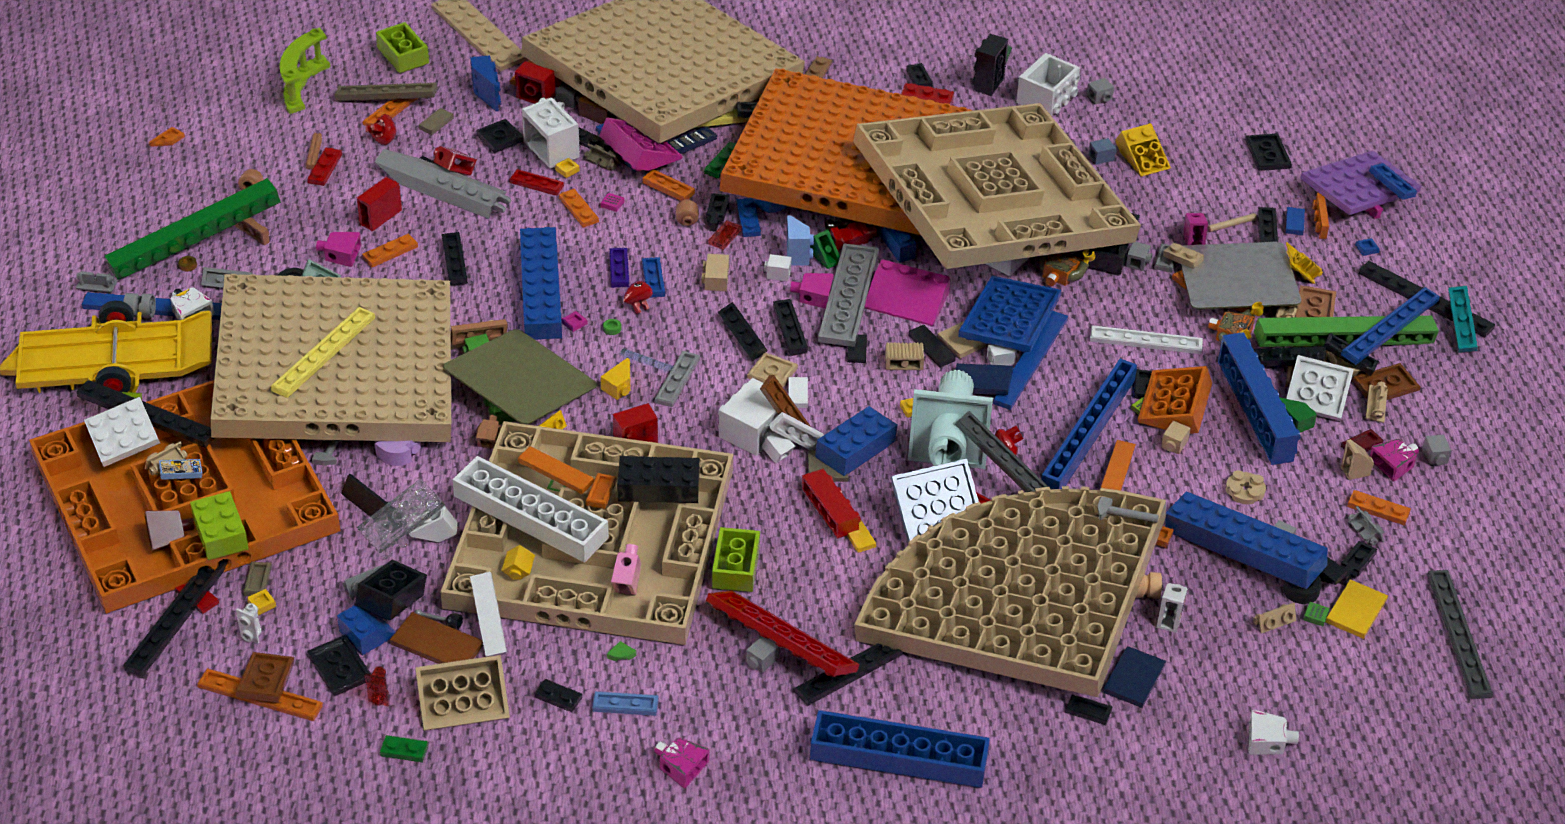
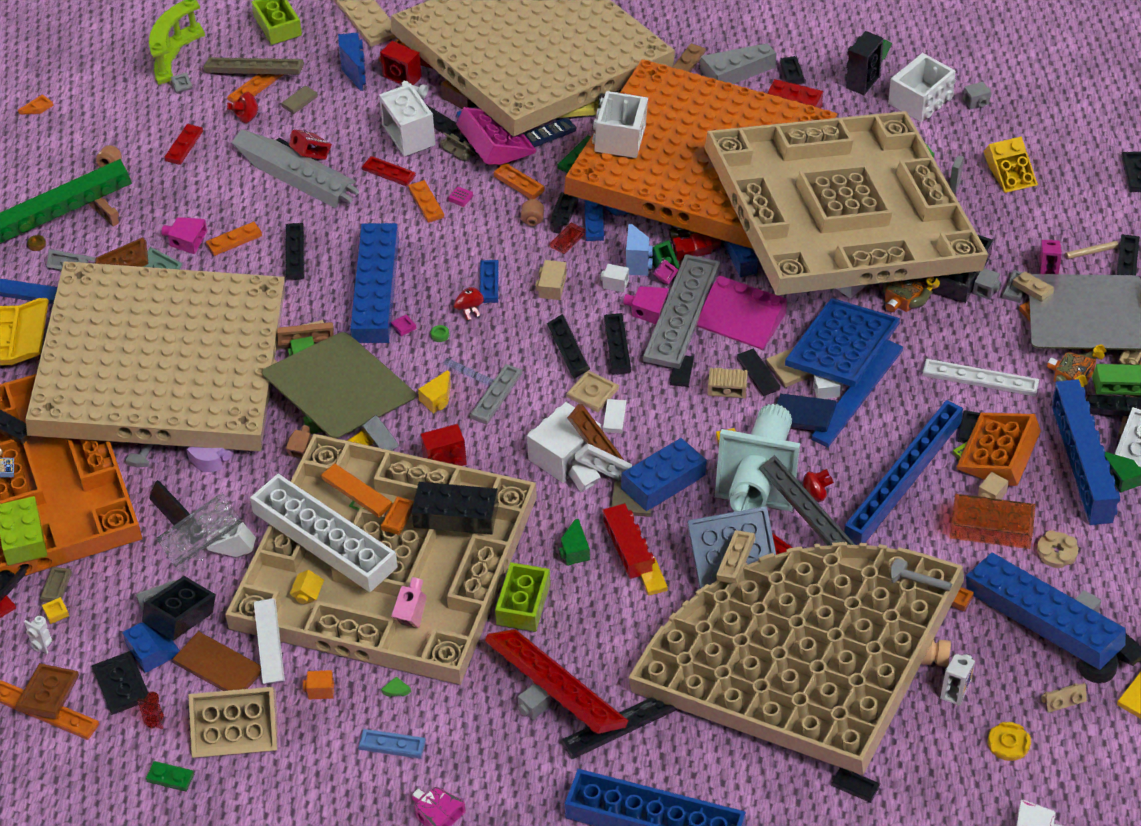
camera: 10 degrees right, 5 degrees up
(189, 303) = (30, 287): white torso -> none
(291, 265) = (127, 255): none -> dark orange tile
(314, 110) = (181, 82): none -> light grey tile
(314, 150) = (175, 126): nougat axle -> none
(322, 352) = (145, 351): light yellow tile -> none
(379, 203) = (228, 189): red brick -> none
(453, 620) = (236, 643): black hinge -> none
(500, 135) = (359, 118): black plate -> none
(544, 653) = (319, 684): none -> orange brick
(558, 695) = (327, 730): black plate -> none
(567, 167) = (420, 156): yellow plate -> none
(567, 418) = (379, 434): none -> tile
(568, 95) = (431, 77): dark grey brick -> none
(619, 267) = (456, 268): dark purple tile -> none
(768, 122) = (620, 124): none -> white container
(778, 510) = (574, 545): none -> green slope
(827, 260) = (665, 272): none -> dark pink tile
(869, 70) = (738, 64): none -> light grey wedge
(943, 507) = (735, 557): none -> tan plate
(1094, 156) = (956, 173): none -> light grey tile
(1102, 151) = (971, 164): sand blue brick -> none
(1118, 465) = (926, 521): orange tile -> none
(1134, 676) = (908, 752): dark blue tile -> none
(1180, 465) = (992, 521): none -> clear orange brick
(1227, 666) = (1009, 747): none -> yellow tile
(1316, 614) = (1108, 695): bright green tile -> none

